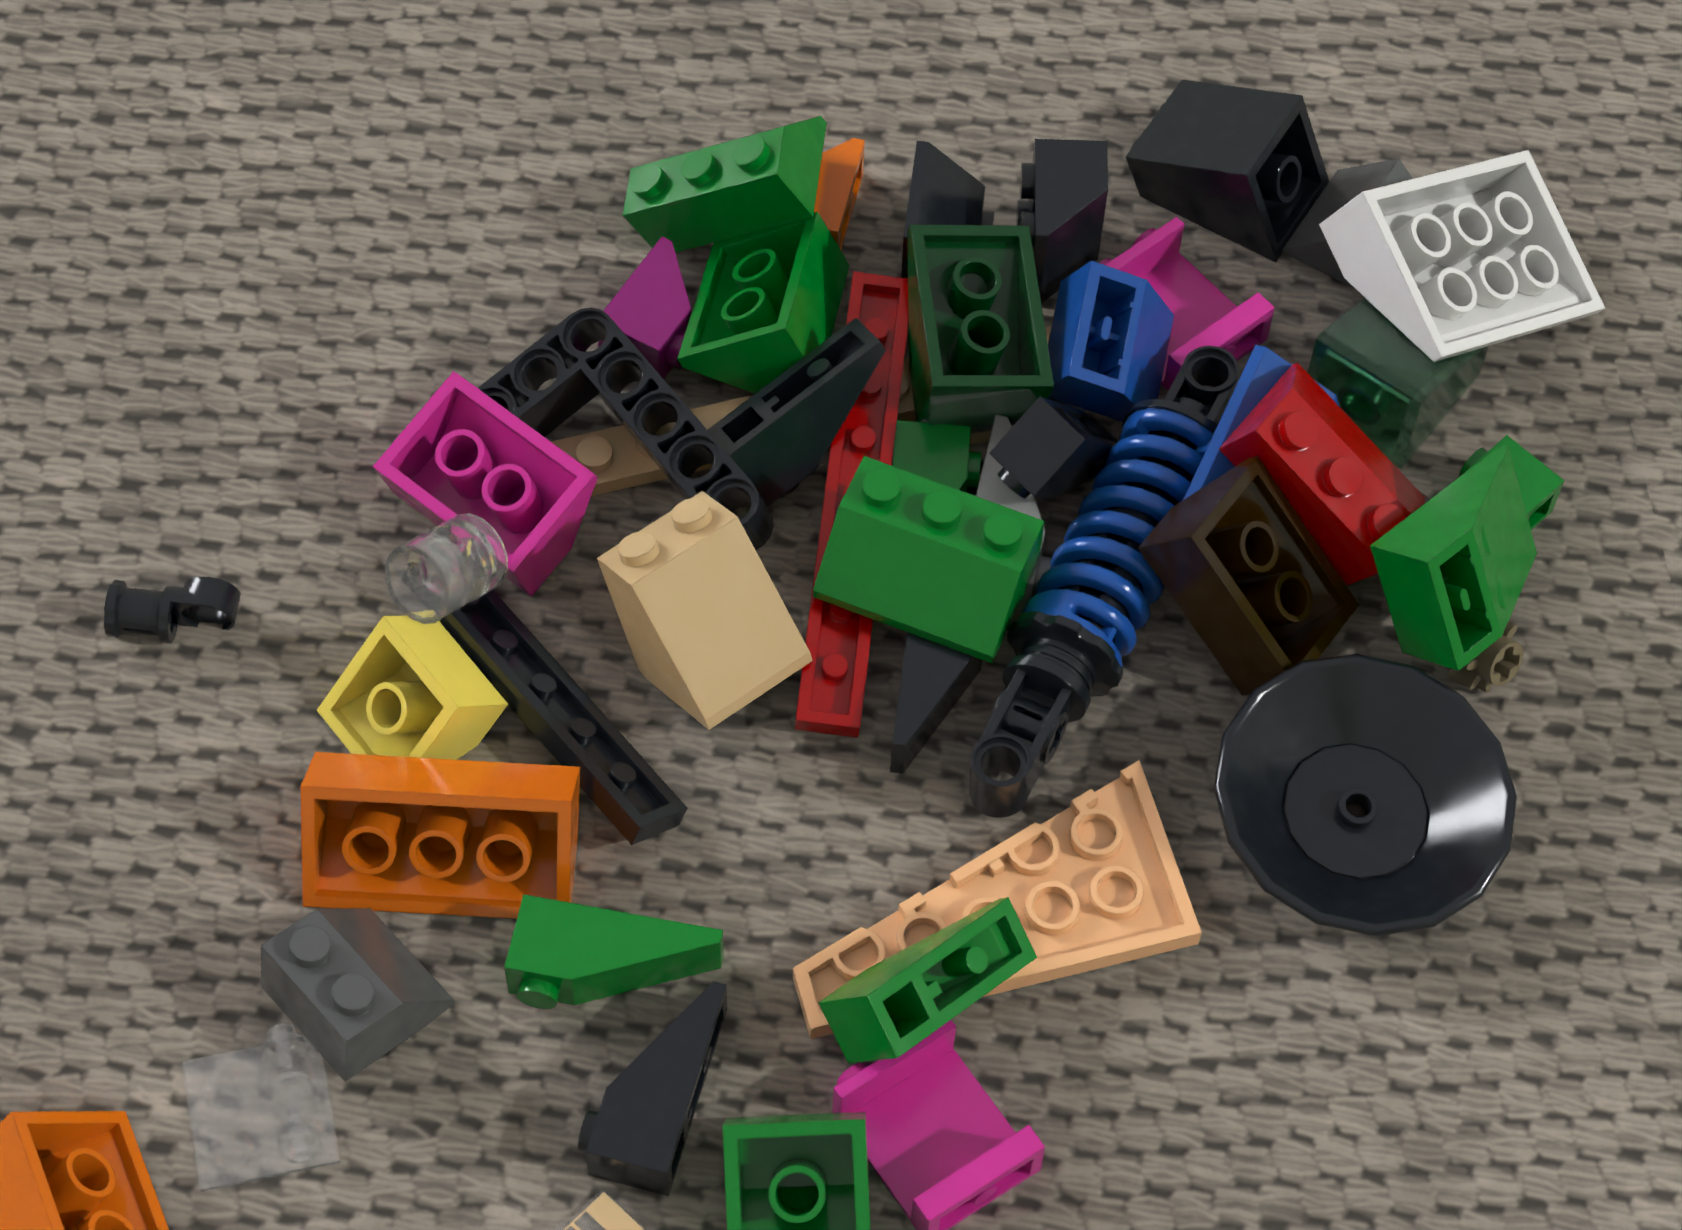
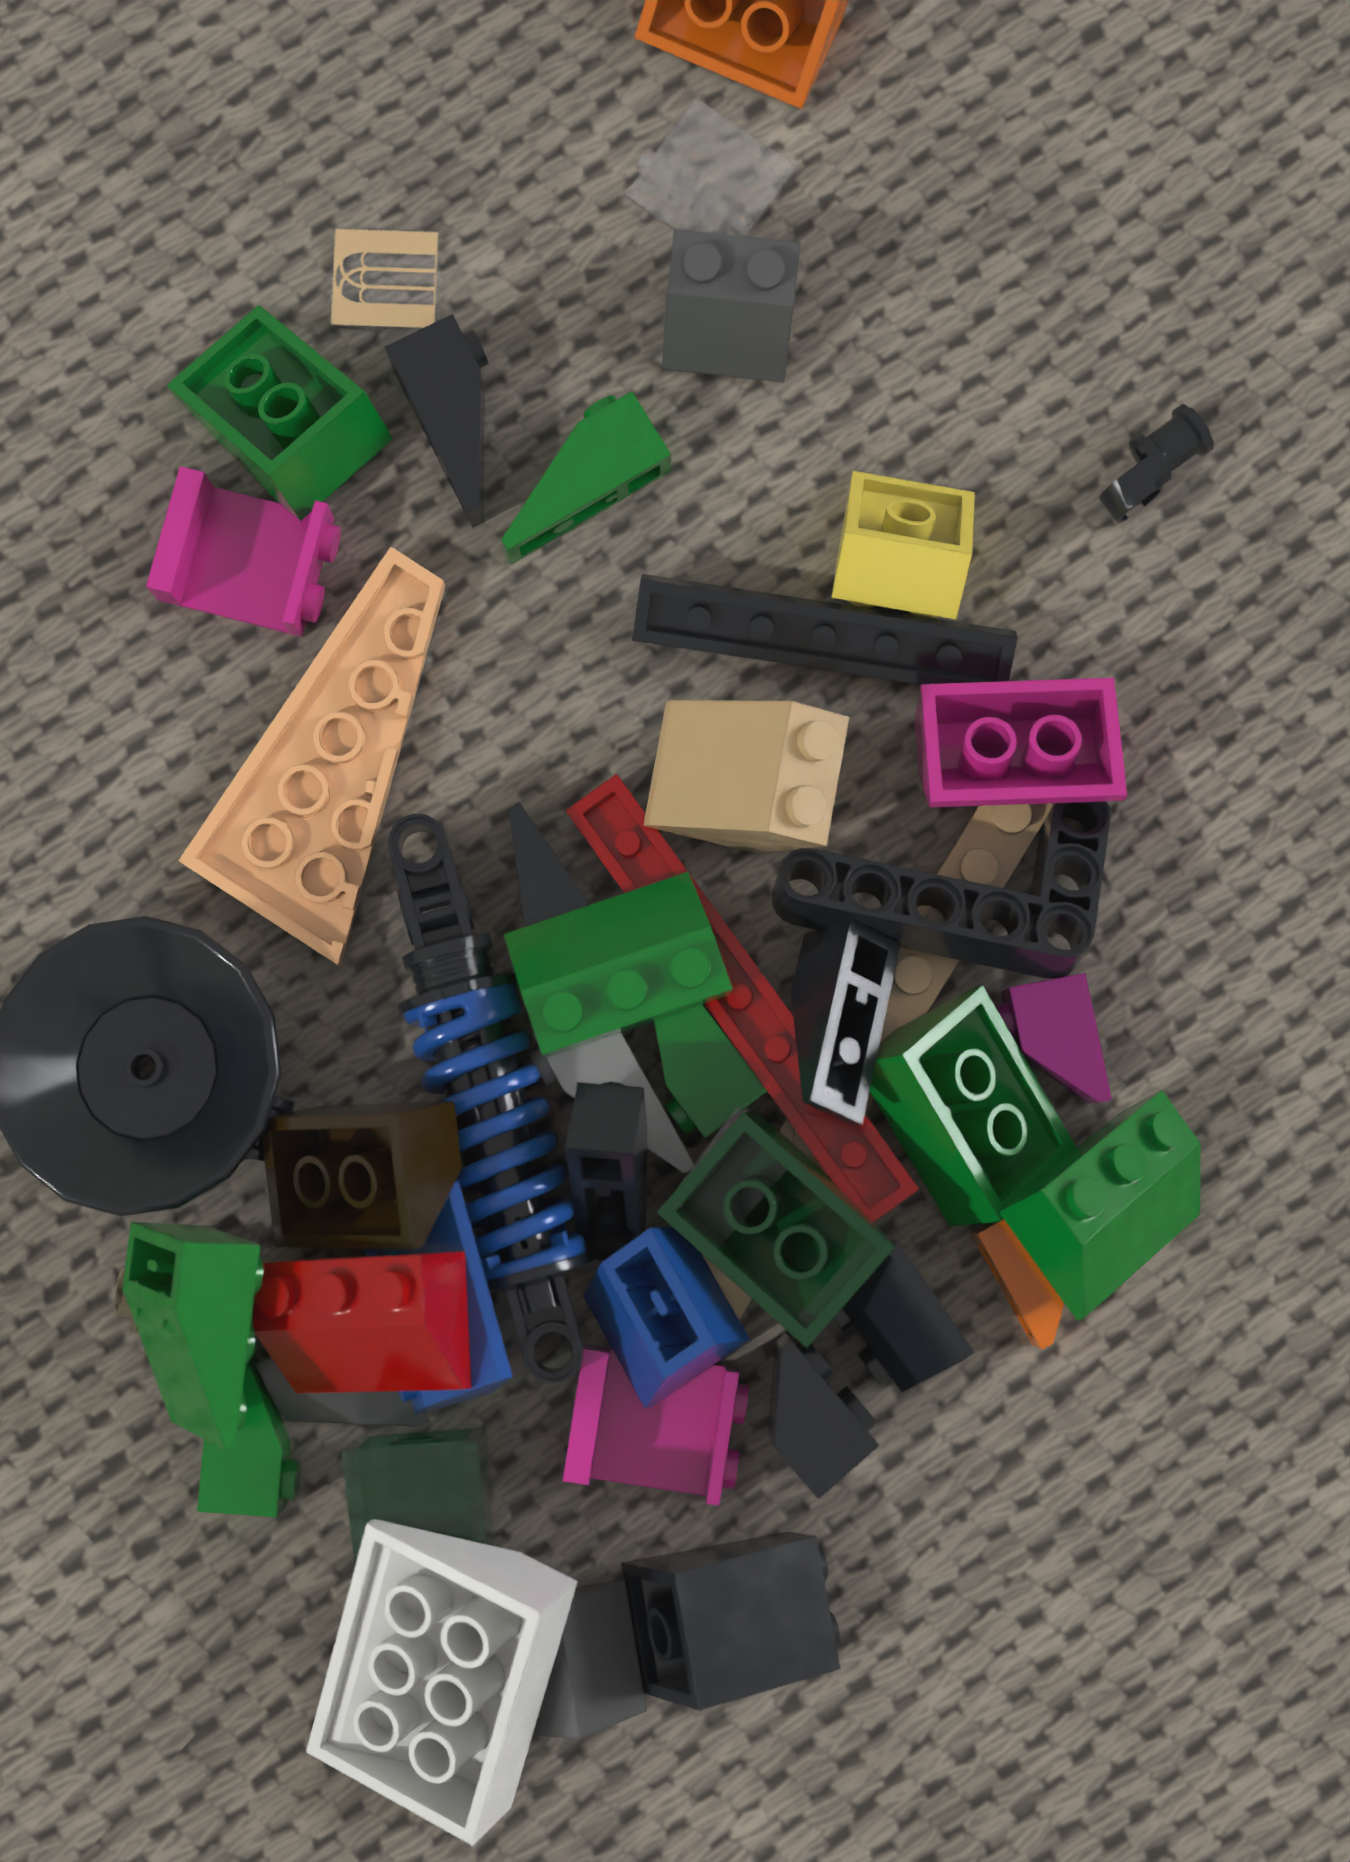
camera: 135 degrees right, 25 degrees up
(436, 834) = (784, 462): orange slope -> none
(446, 568) = (967, 613): clear wheel -> none
(927, 984) = (324, 623): green slope -> none

